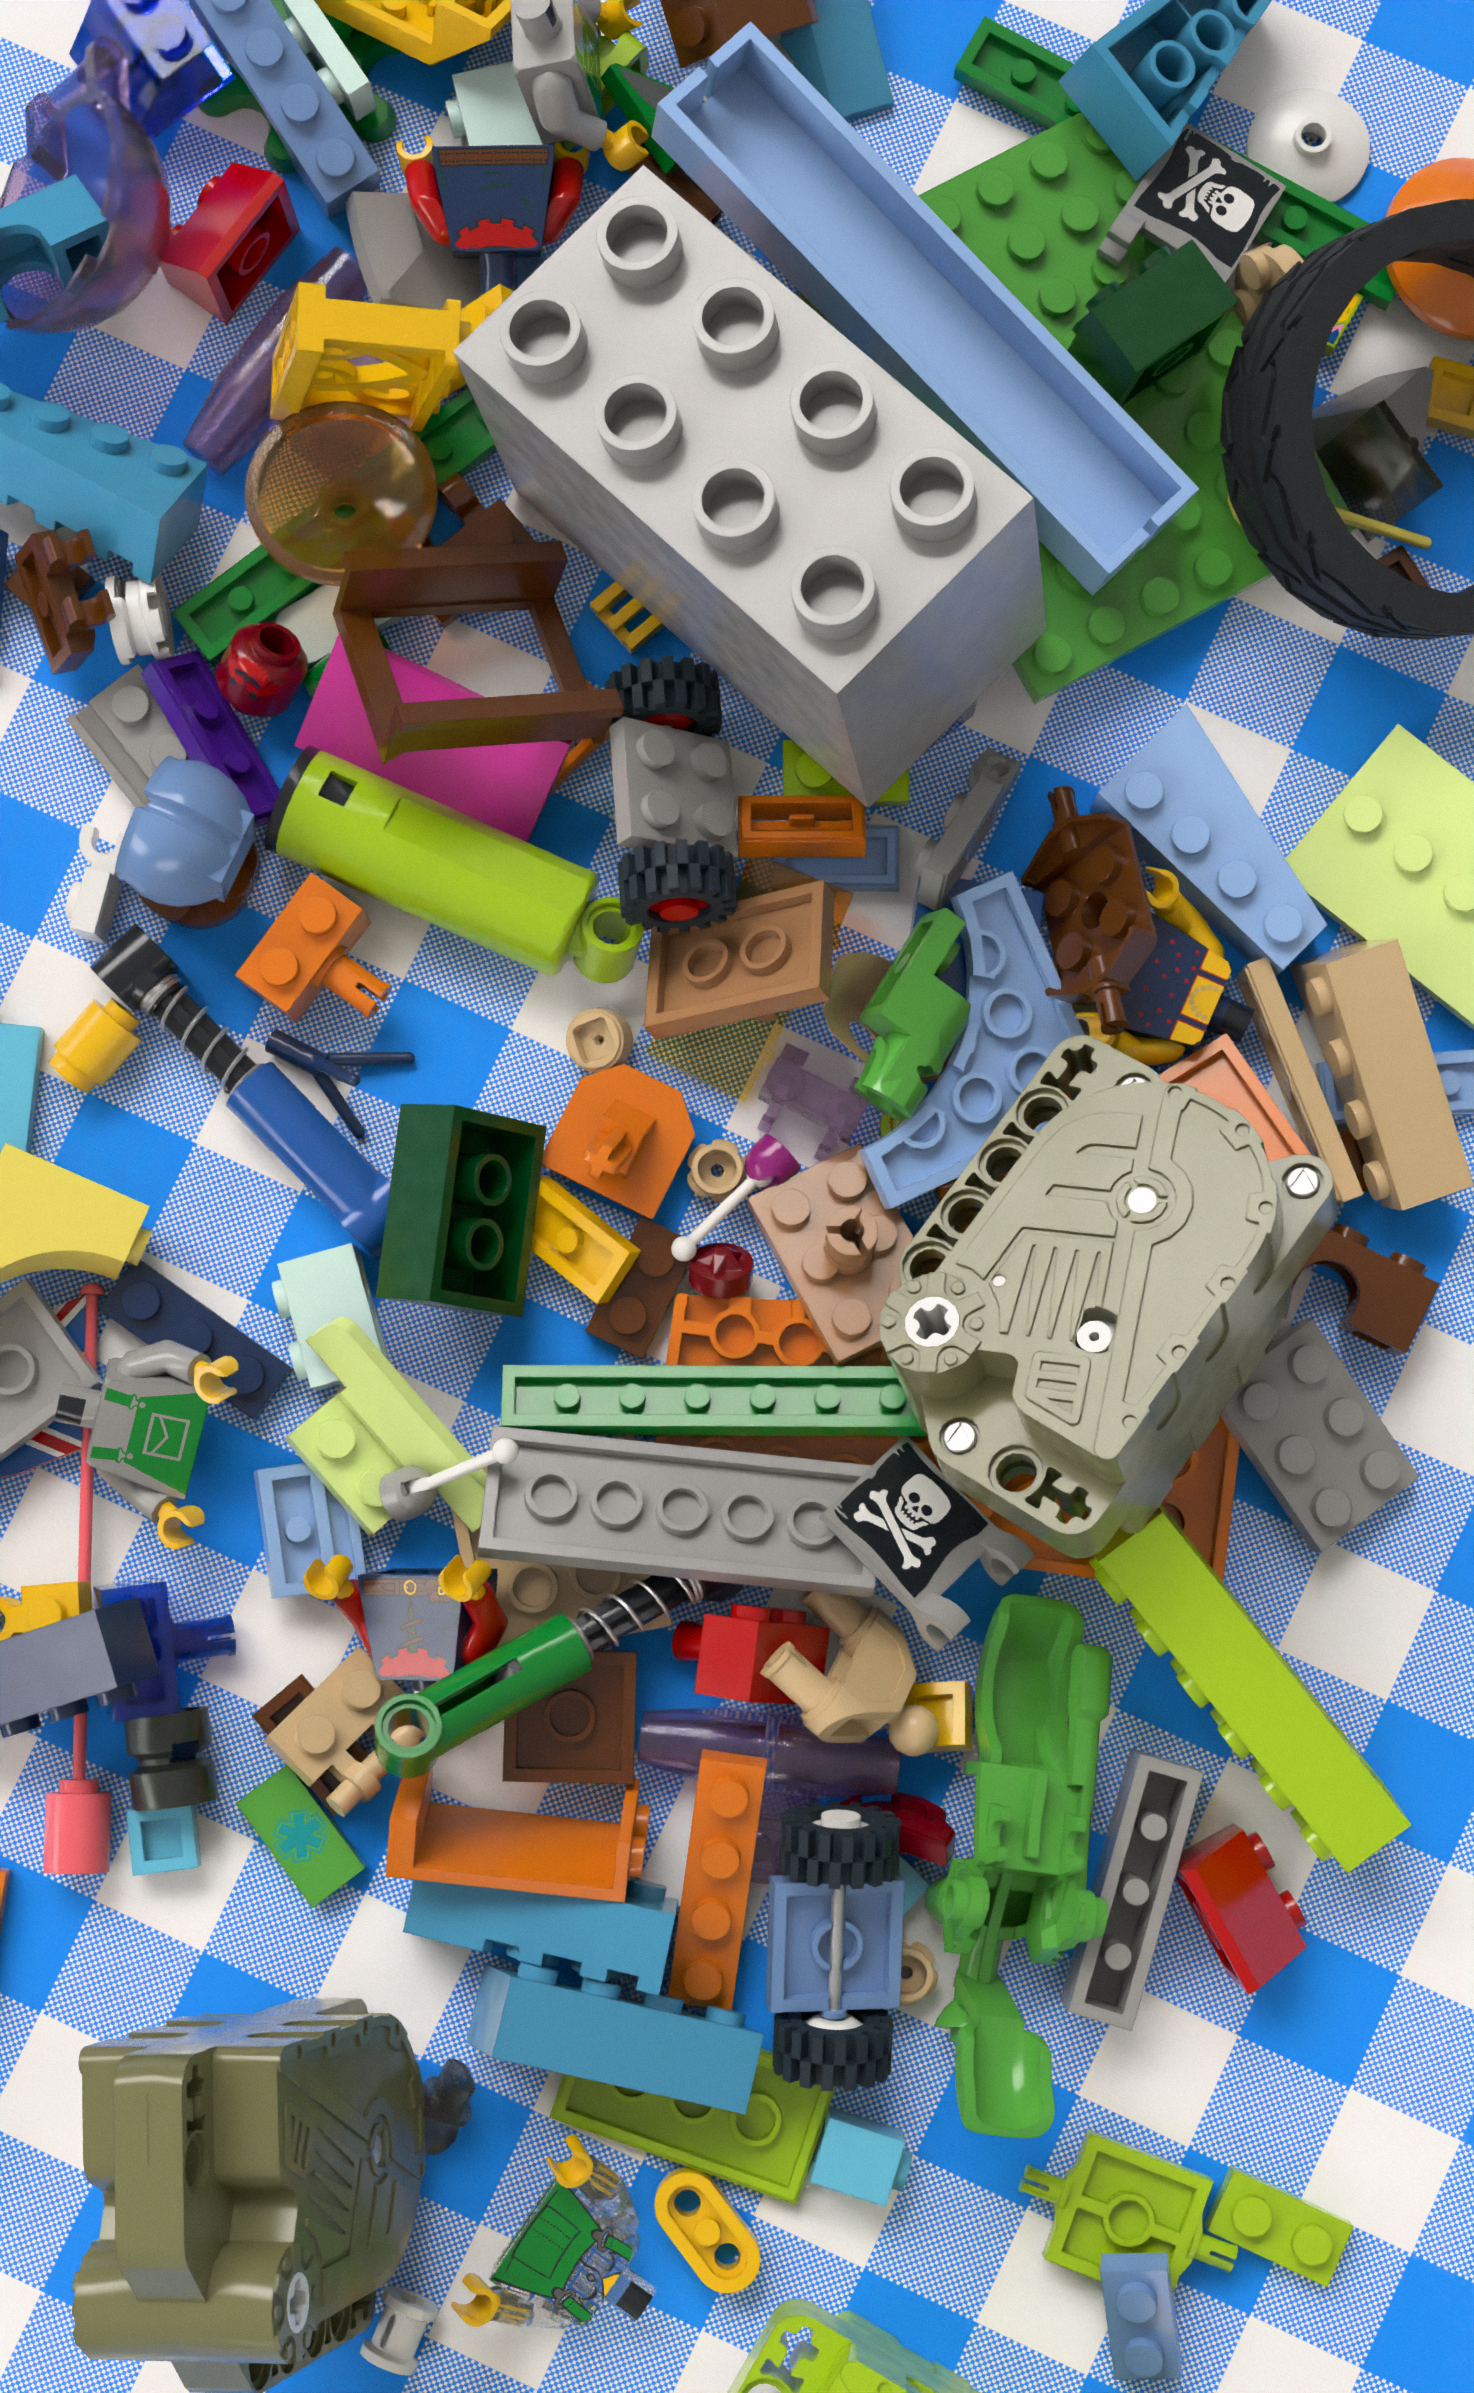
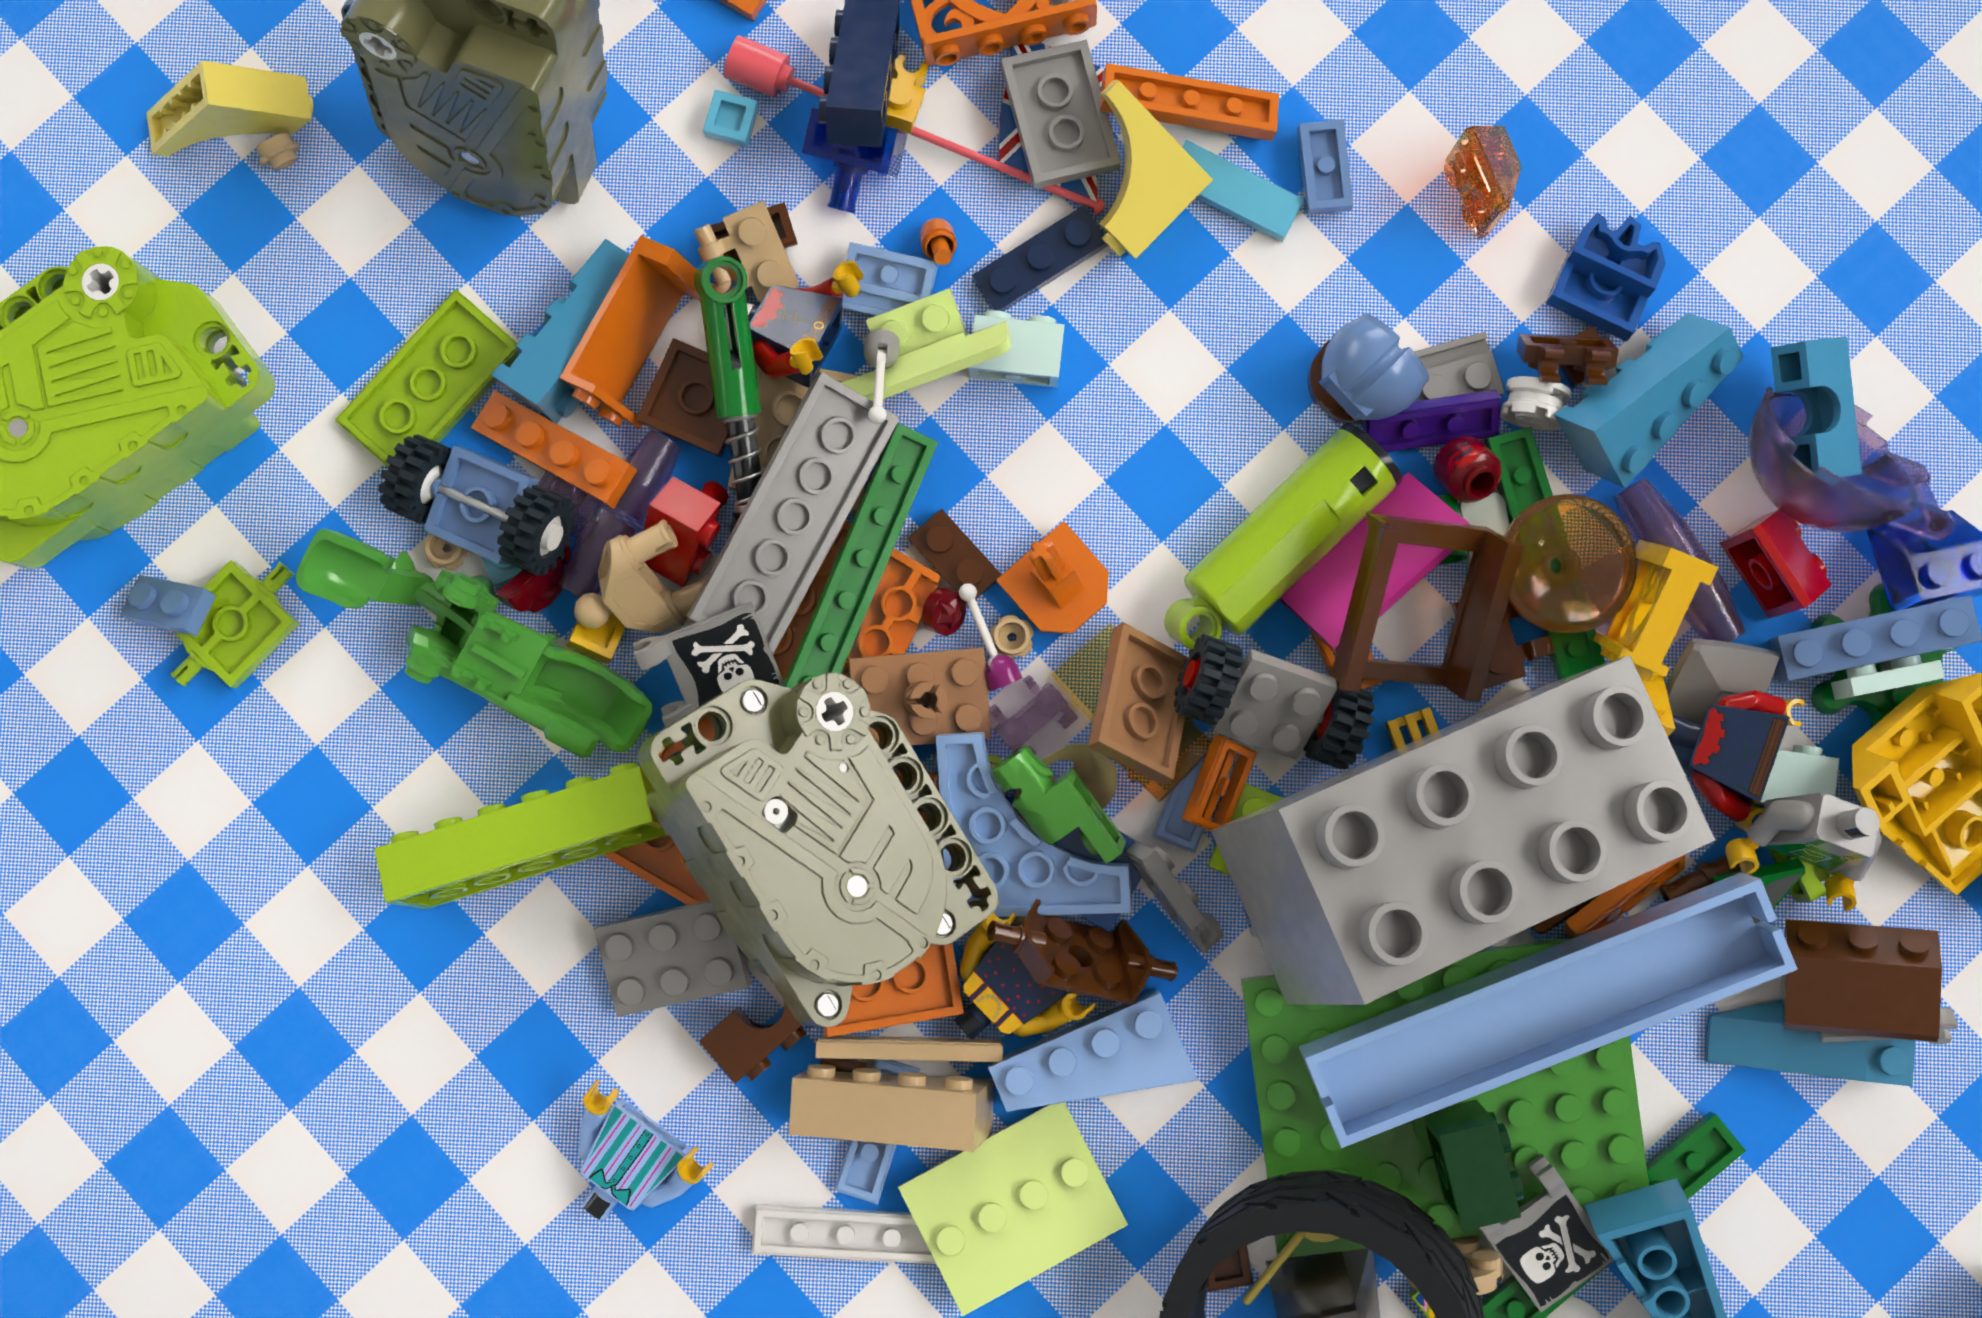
camera: 115 degrees right, 0 degrees up
(94, 900) = (1354, 299): white plate -> none
(96, 1044) = (1257, 268): yellow brick -> none
(150, 1427) = (990, 202): torso -> none
(177, 1781) = (762, 135): pearl dark grey wheel -> none
(225, 1483) = (938, 240): none -> orange cylinder
(257, 1092) = (1085, 399): piece -> none
(301, 1835) = (695, 204): bright green tile -> none
(310, 951) = (1263, 426): orange brick -> none
(323, 1065) = (1173, 410): dark blue plant -> none
(399, 2330) = (366, 145): white bush -> none
(447, 2105) = (491, 227): clear smoke piece -> none
(461, 1210) = (1049, 454): dark green brick -> none
(566, 2254) = (365, 262): torso -> none
(580, 1243) = (1003, 522): yellow plate -> none
(599, 1039) = (1129, 594): tan tile -> none
(614, 2038) = (480, 337): dark azure wedge -> none
(705, 2229) = (345, 356): yellow plate -> none
(860, 2157) = (344, 470): medium azure brick -> none
(1136, 1882) = (433, 712): light grey brick -> none
(1239, 1906) = (391, 775): red slope -> none
(1278, 2226) = (186, 719): lime plate -> none

